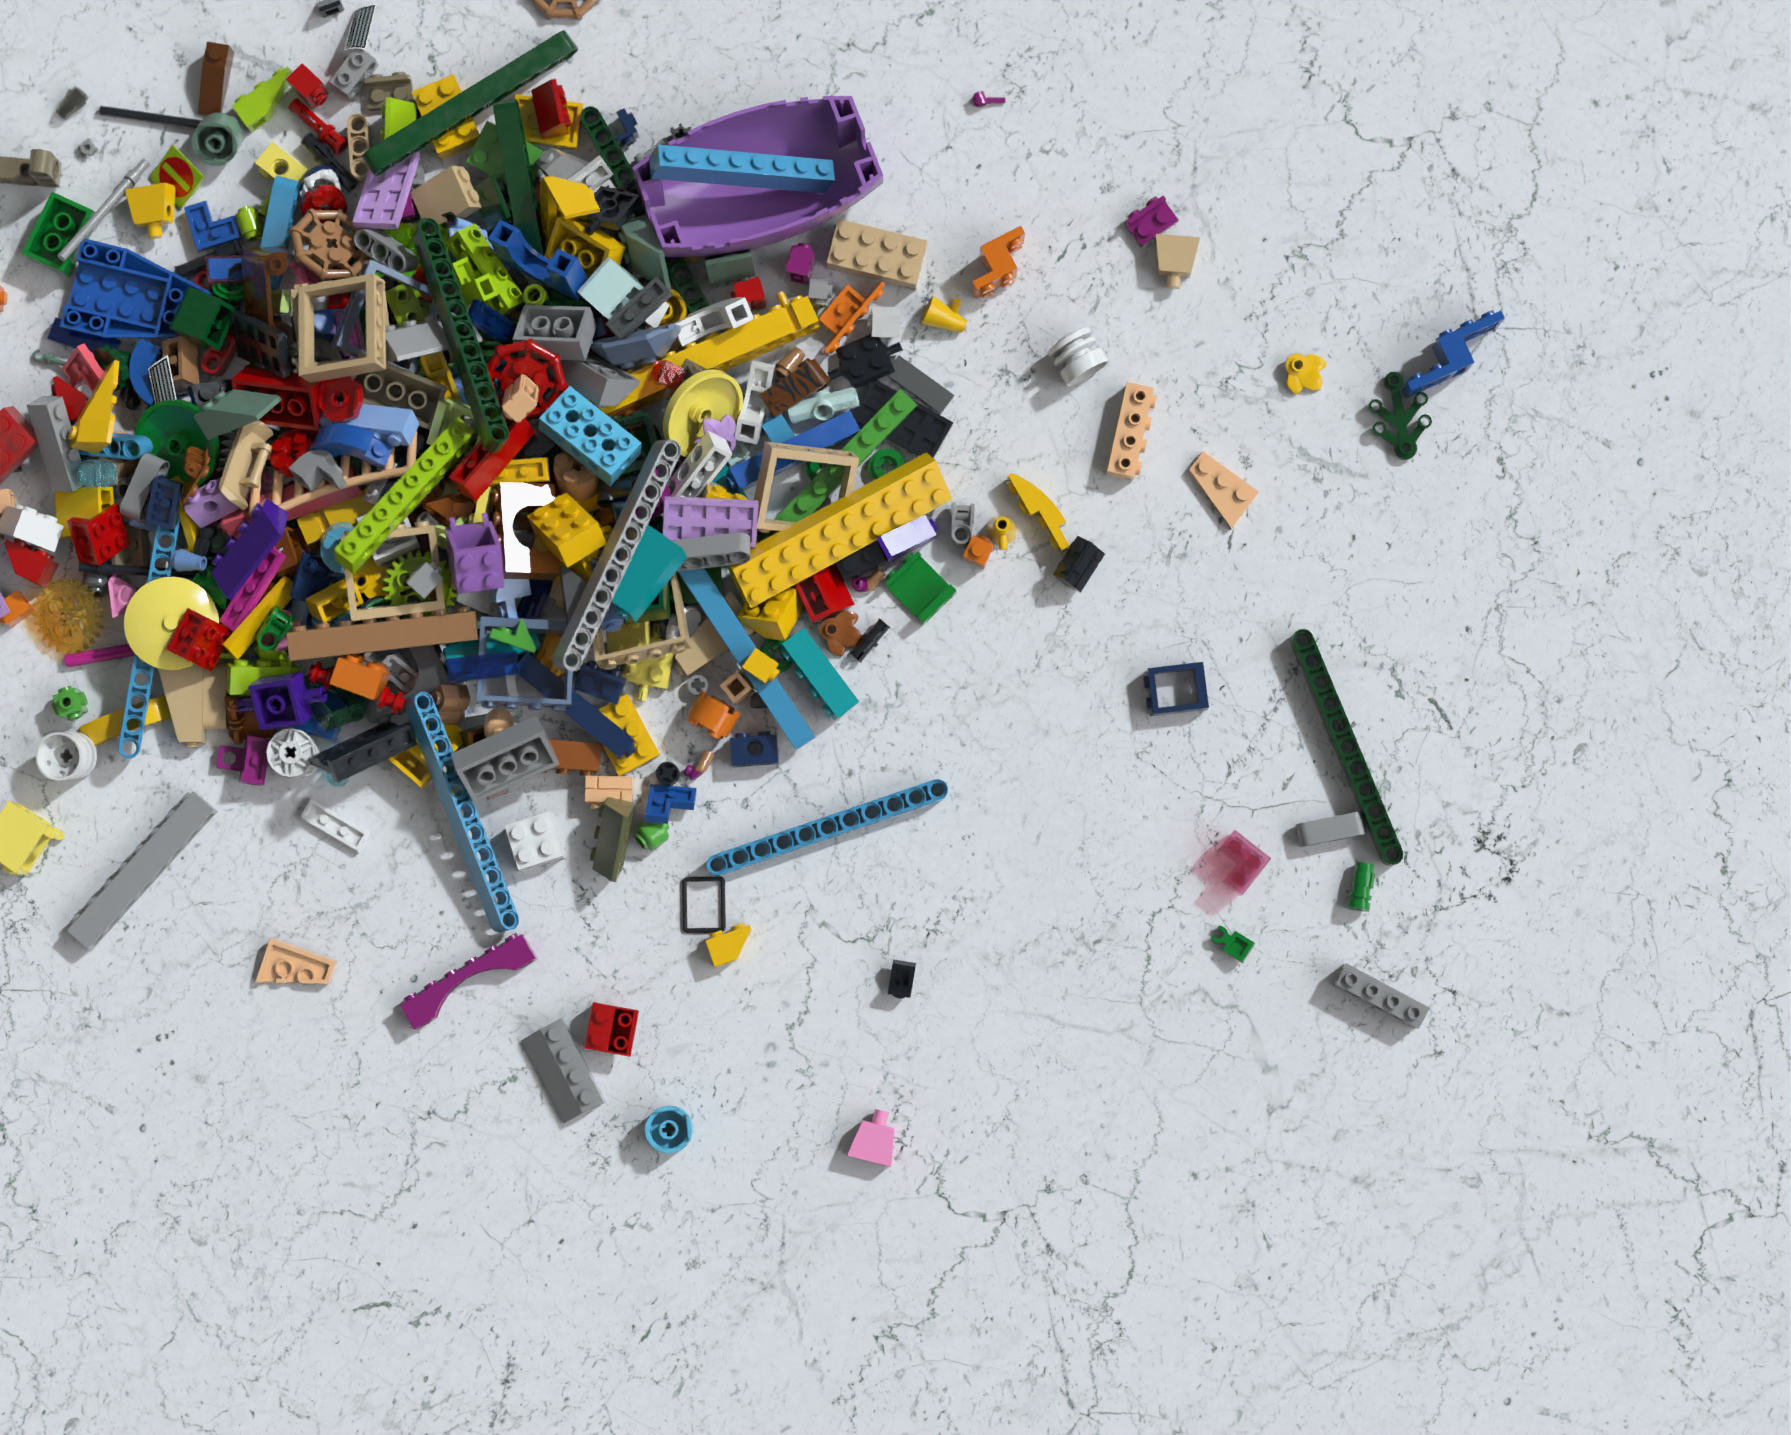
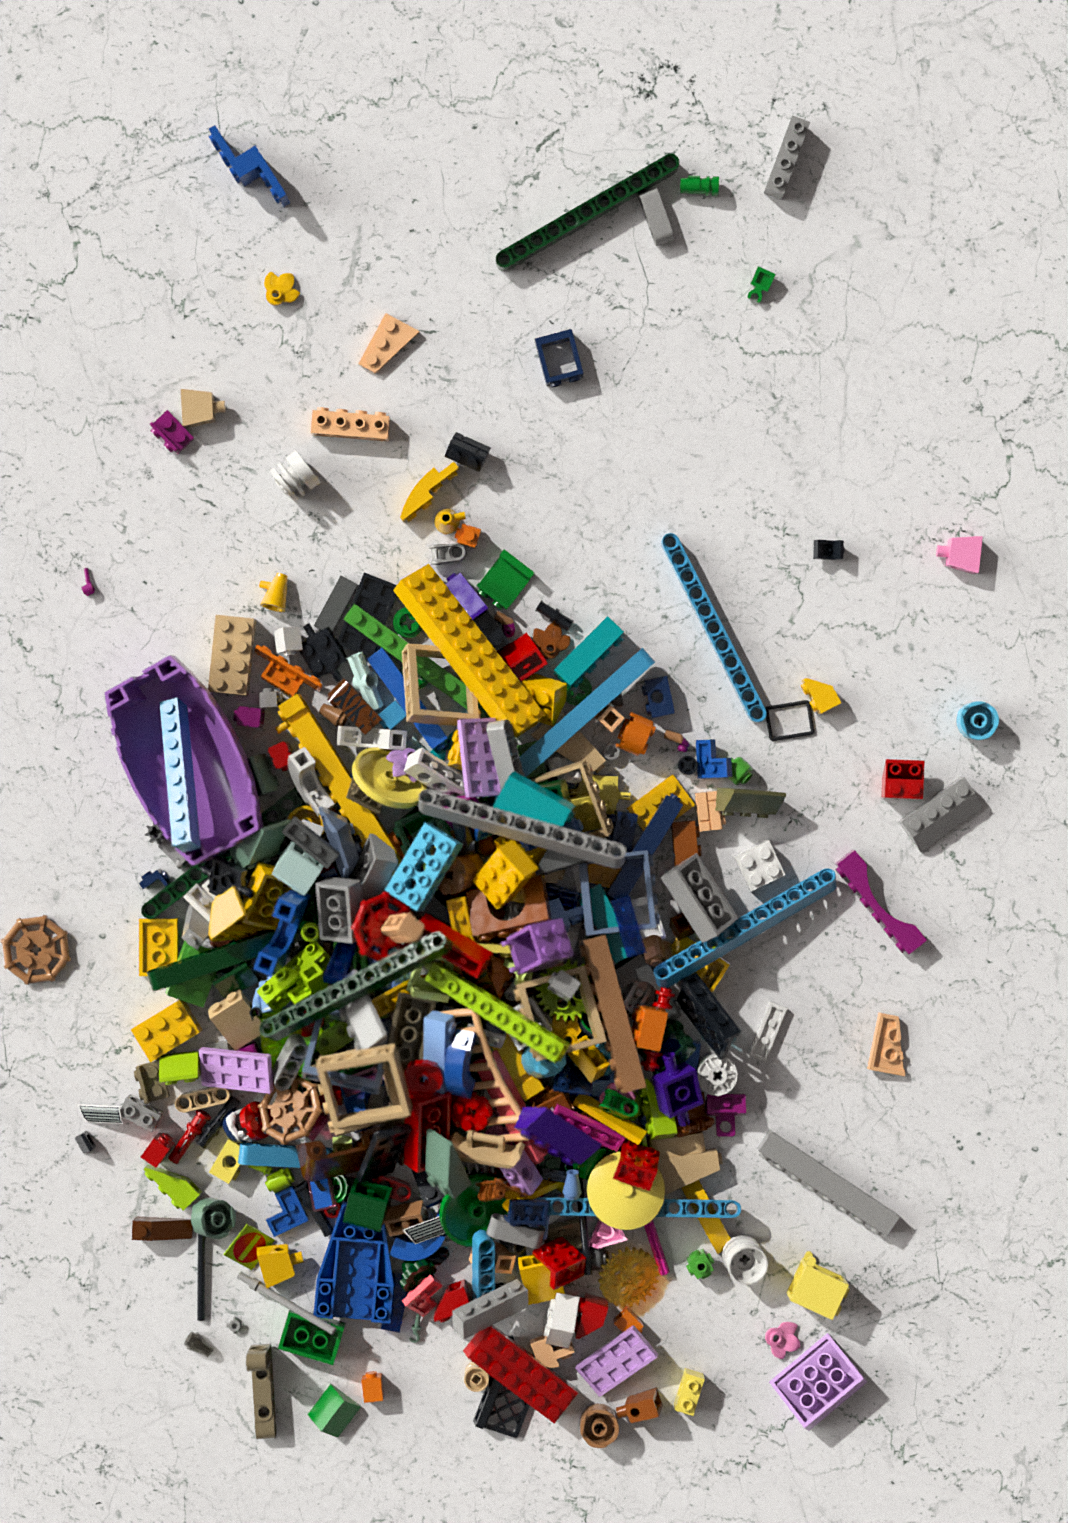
camera: 100 degrees left, 5 degrees up
(96, 423) = (471, 1280): yellow wedge -> none
(97, 473) = (510, 1271): clear light blue gear -> none
(315, 467) = (482, 1090): light grey brick -> none
(469, 103) = (154, 1011): dark green beam -> none
(497, 721) = (668, 909): light nougat head -> none
(521, 640) = (601, 898): bright green slope -> none
(549, 109) = (151, 944): red slope -> none
(667, 374) = (362, 812): clear red bracket -> none
(761, 666) = (593, 698): yellow brick -> none
(998, 263) = (225, 552): orange bracket -> none
(1248, 861) = (694, 279): clear pink brick -> none
(1400, 419) = (308, 204): dark green plant -> none

